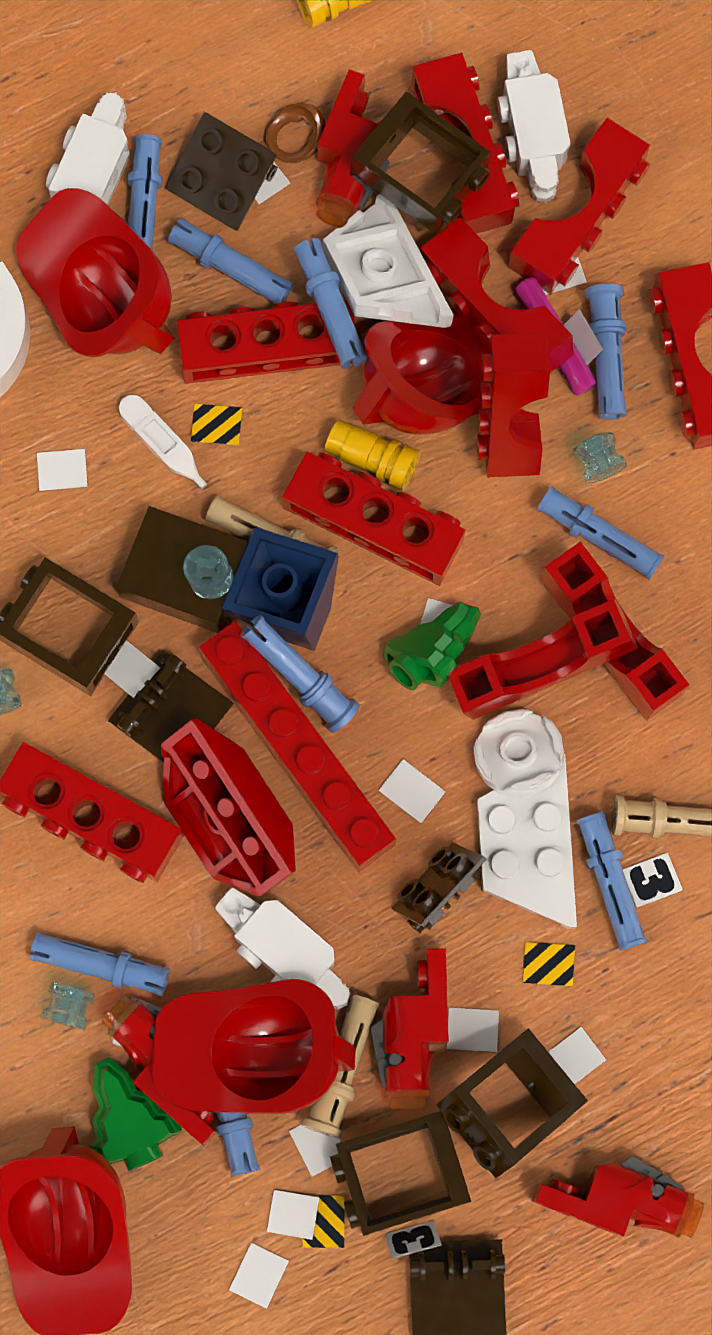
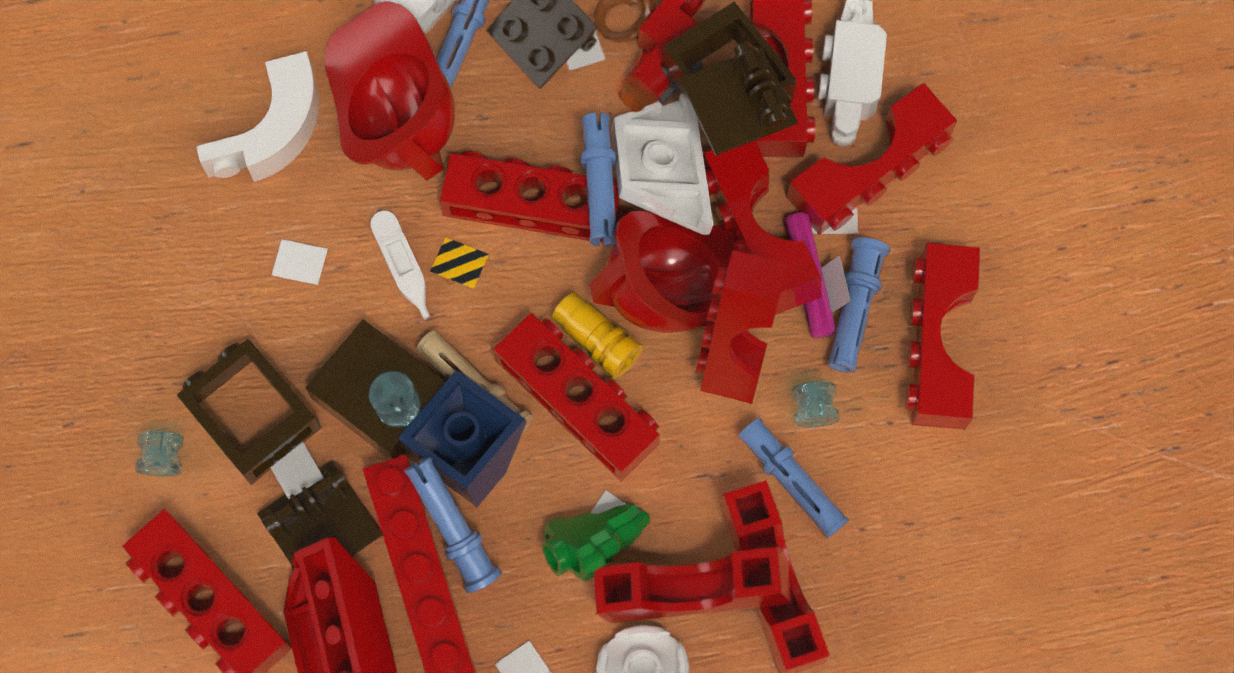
camera: 20 degrees right, 5 degrees down
(216, 254) = (510, 102): medium blue pin -> none
(442, 188) = (738, 100): none -> dark brown hinge

